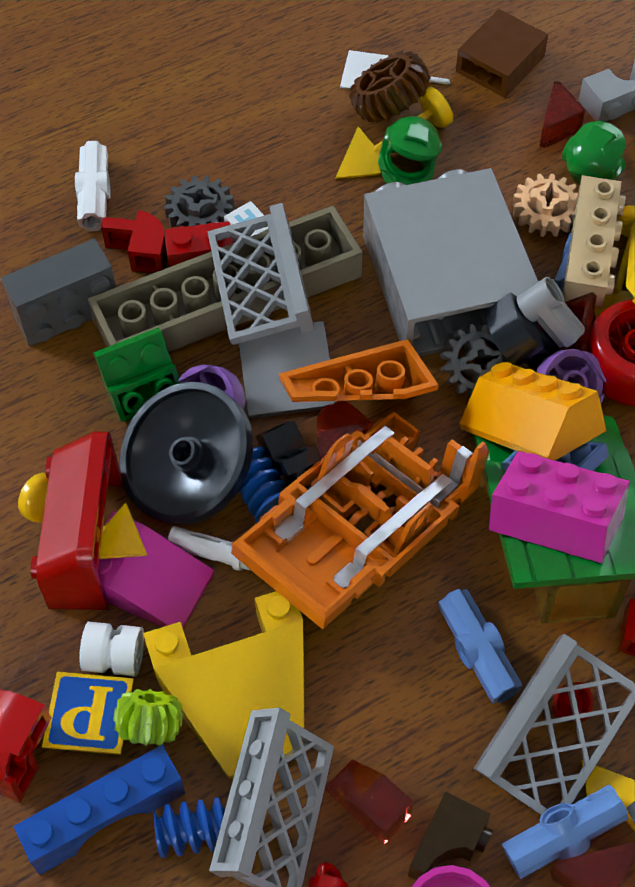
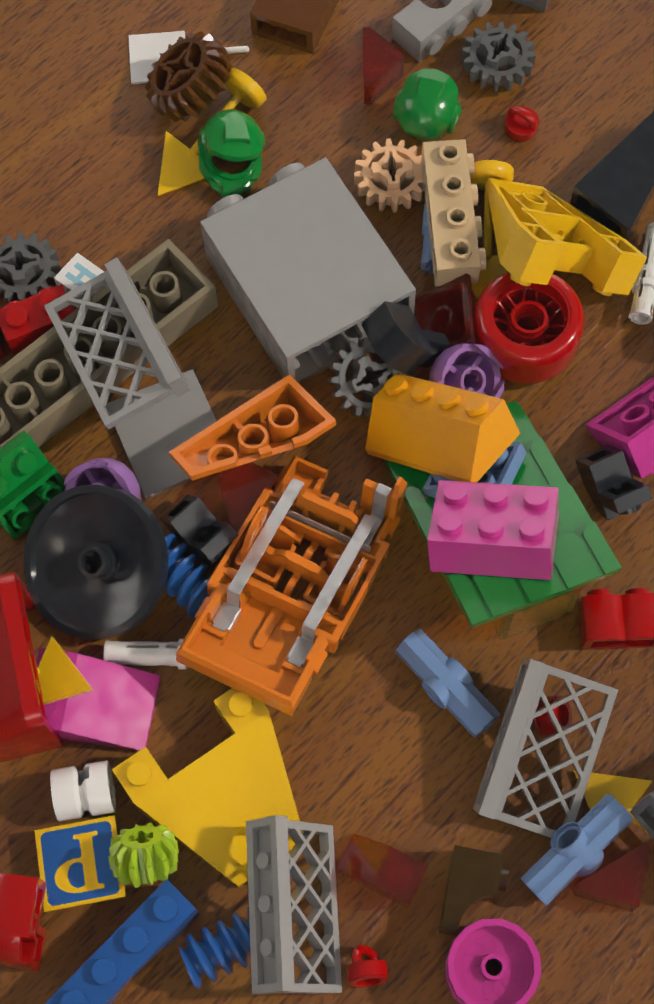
camera: 15 degrees left, 10 degrees up
(546, 305) = (424, 305): light grey piece -> none

